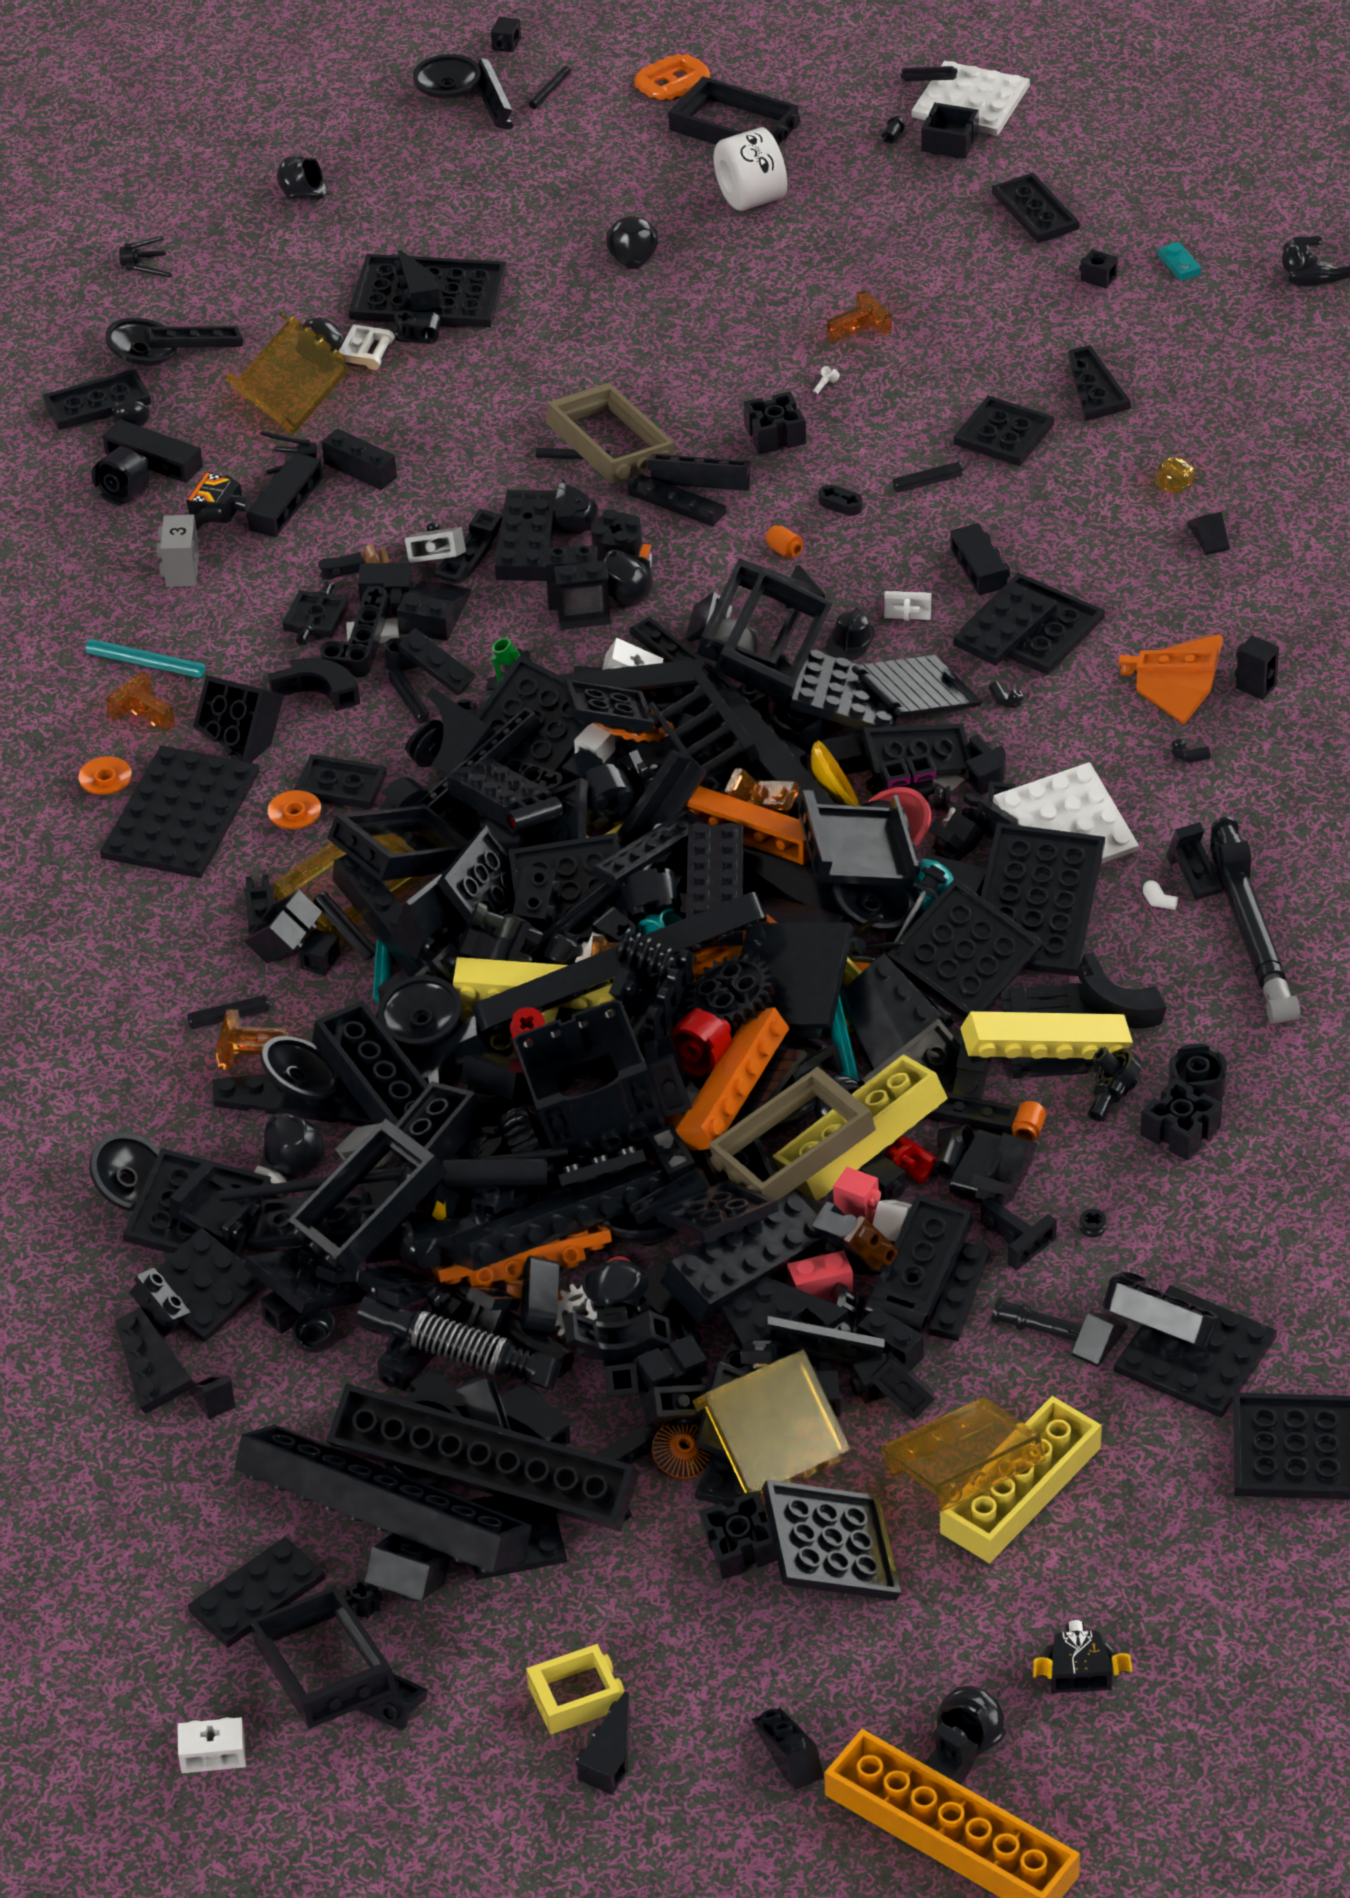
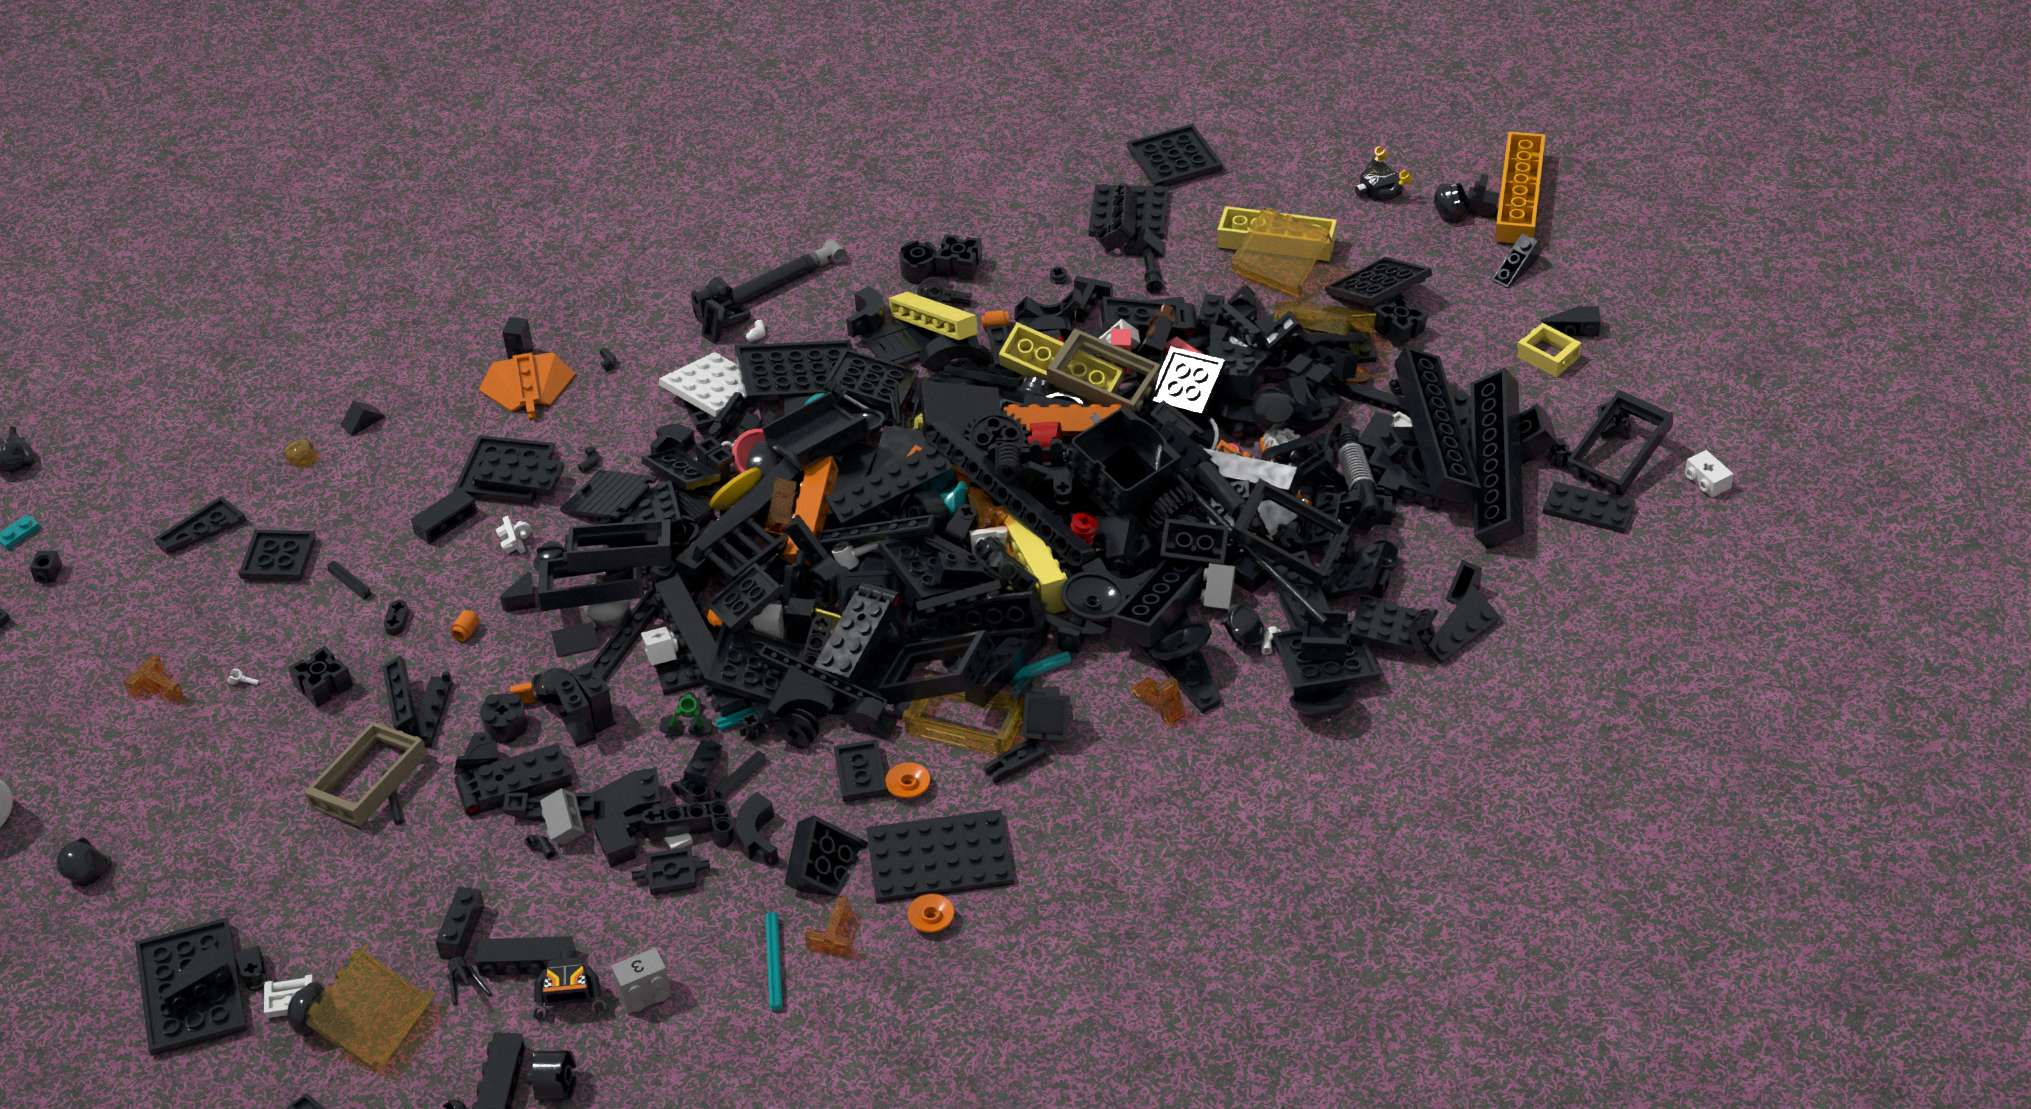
camera: 115 degrees left, 0 degrees up
(216, 1014) = (1131, 731): black axle -> none
(350, 563) = (587, 864): black piece -> none

